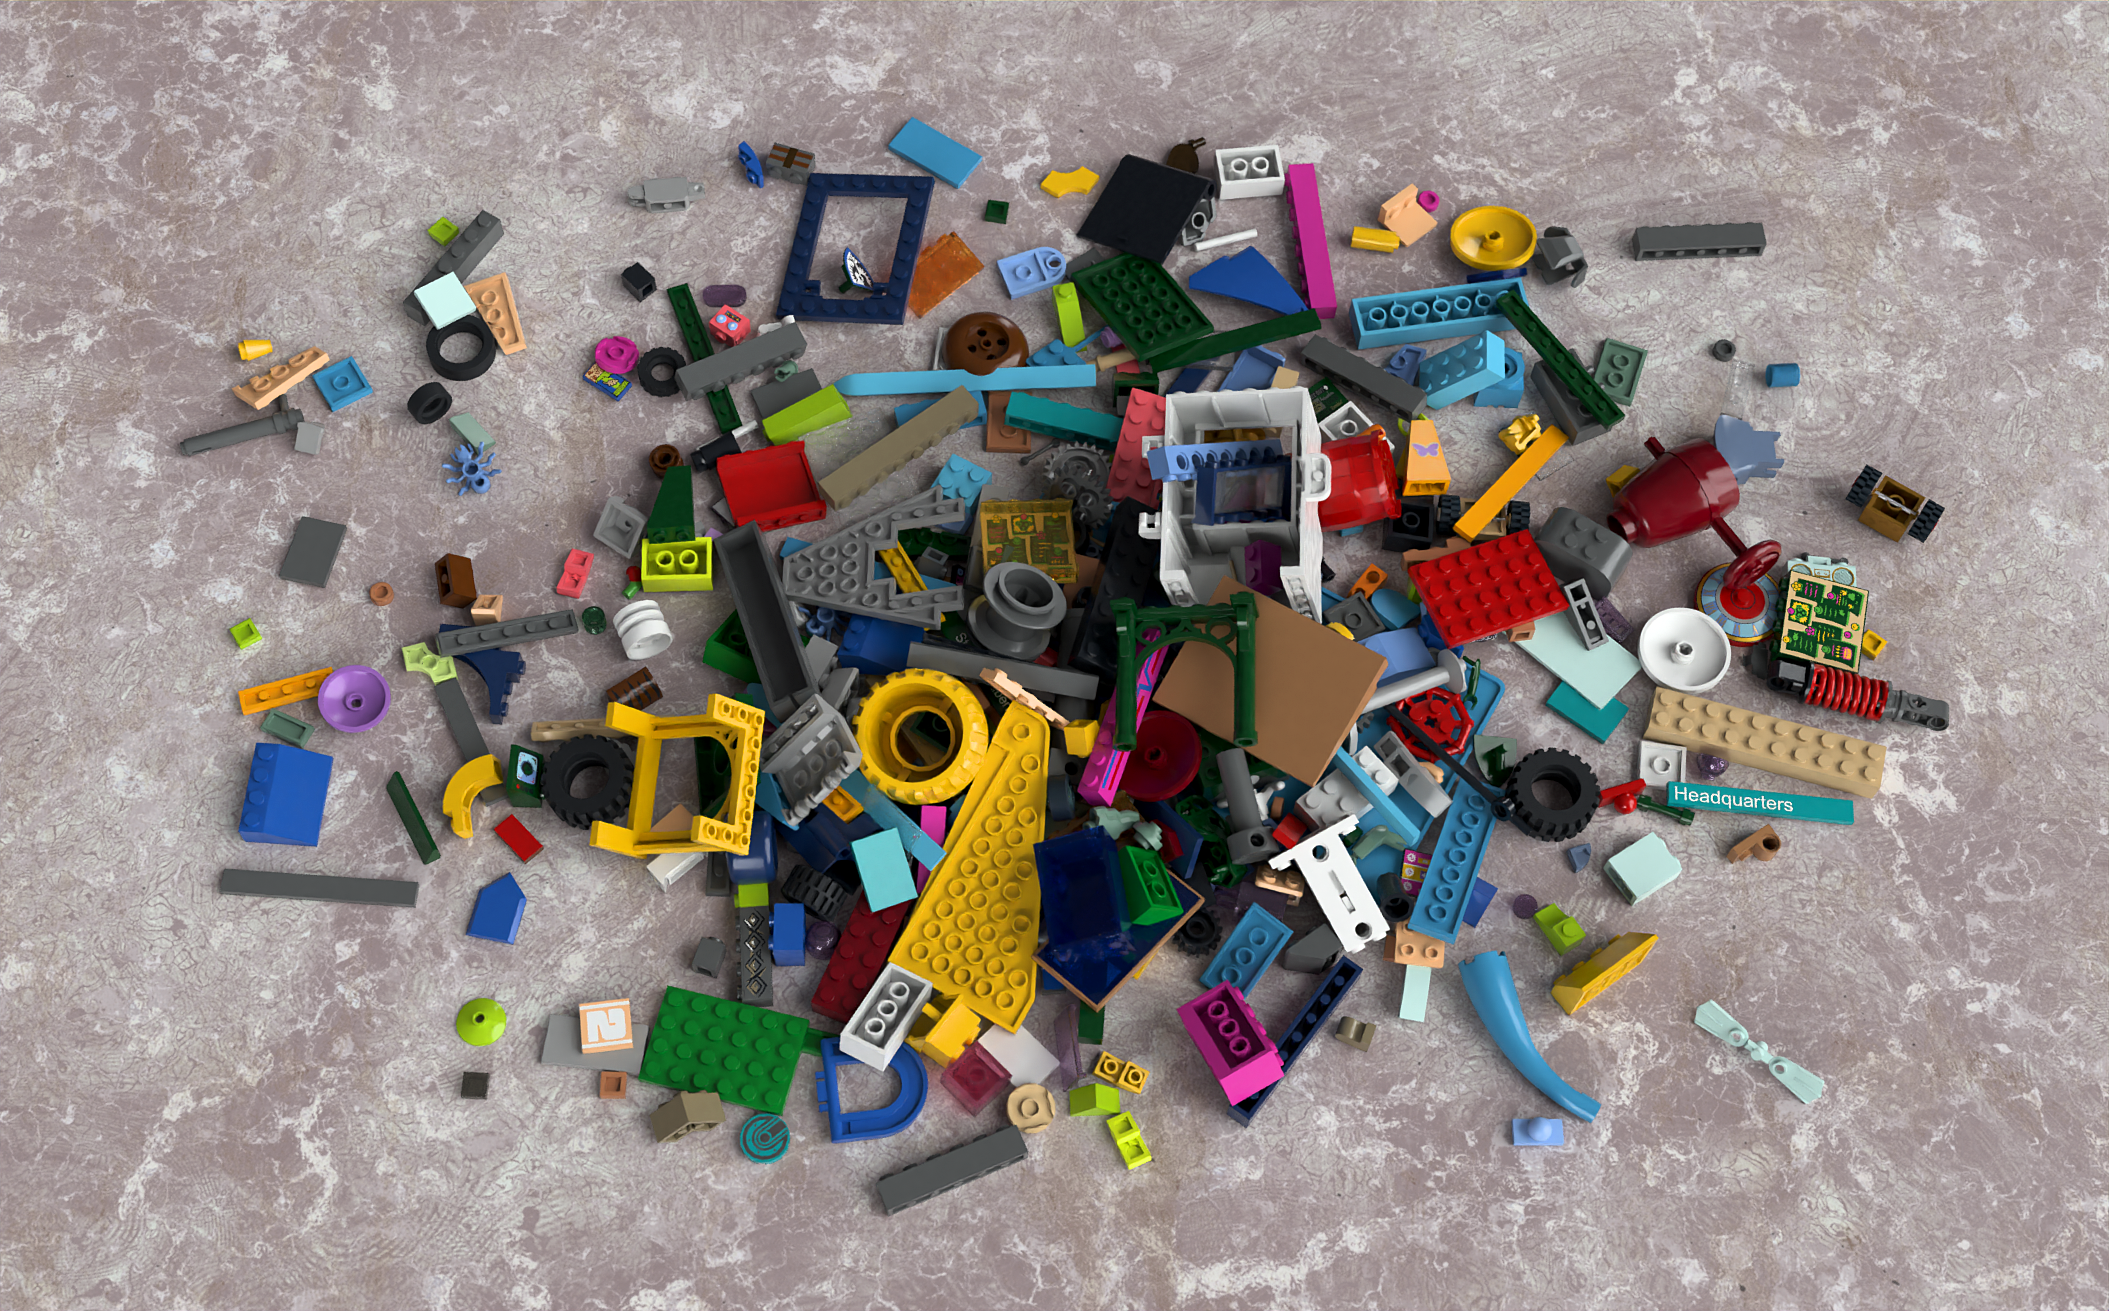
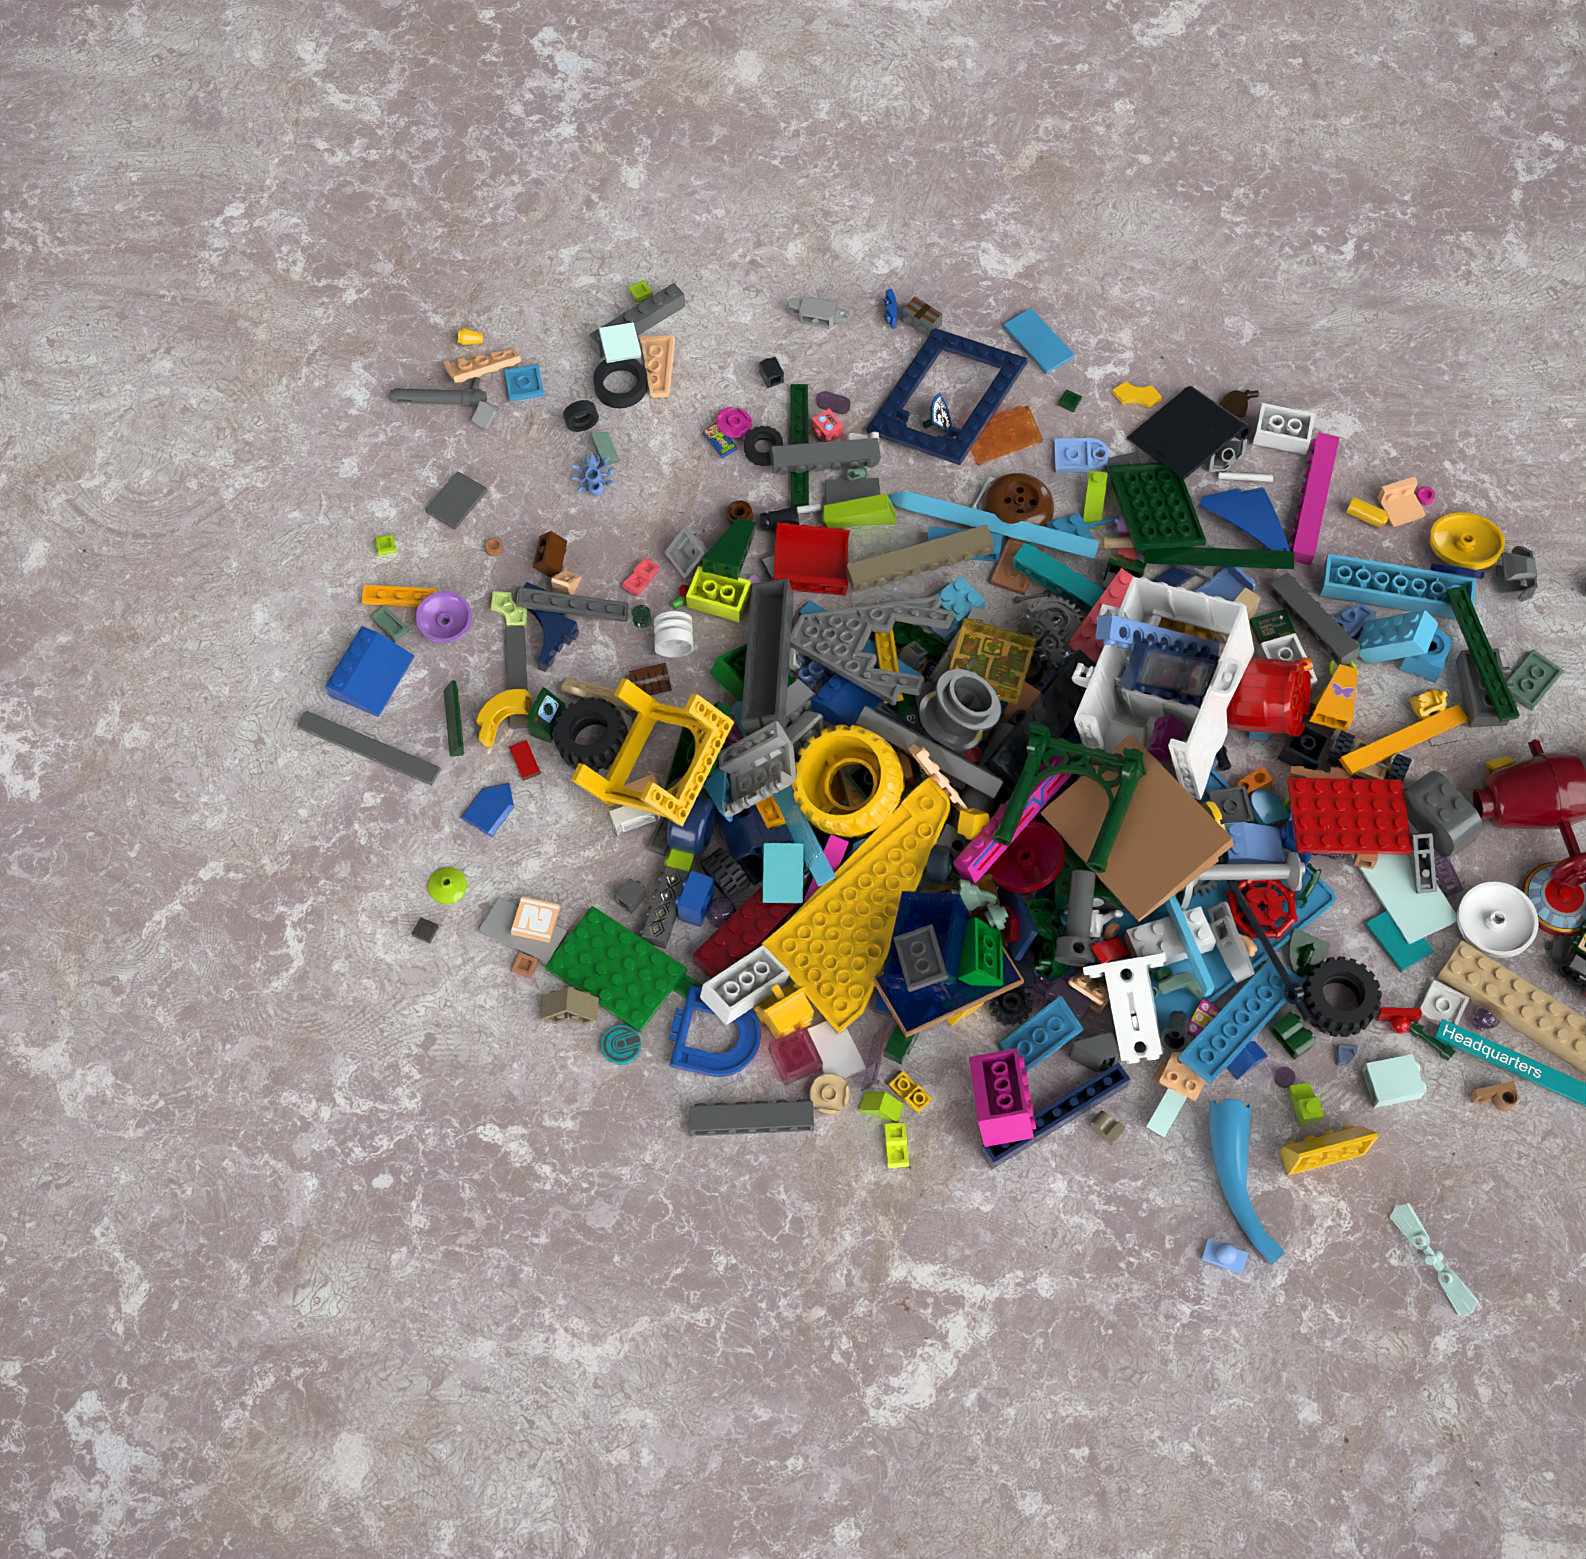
camera: 25 degrees right, 0 degrees up
(1087, 915) = (920, 958): none -> dark grey tile
(1516, 855) = (1292, 1035): none -> dark green brick

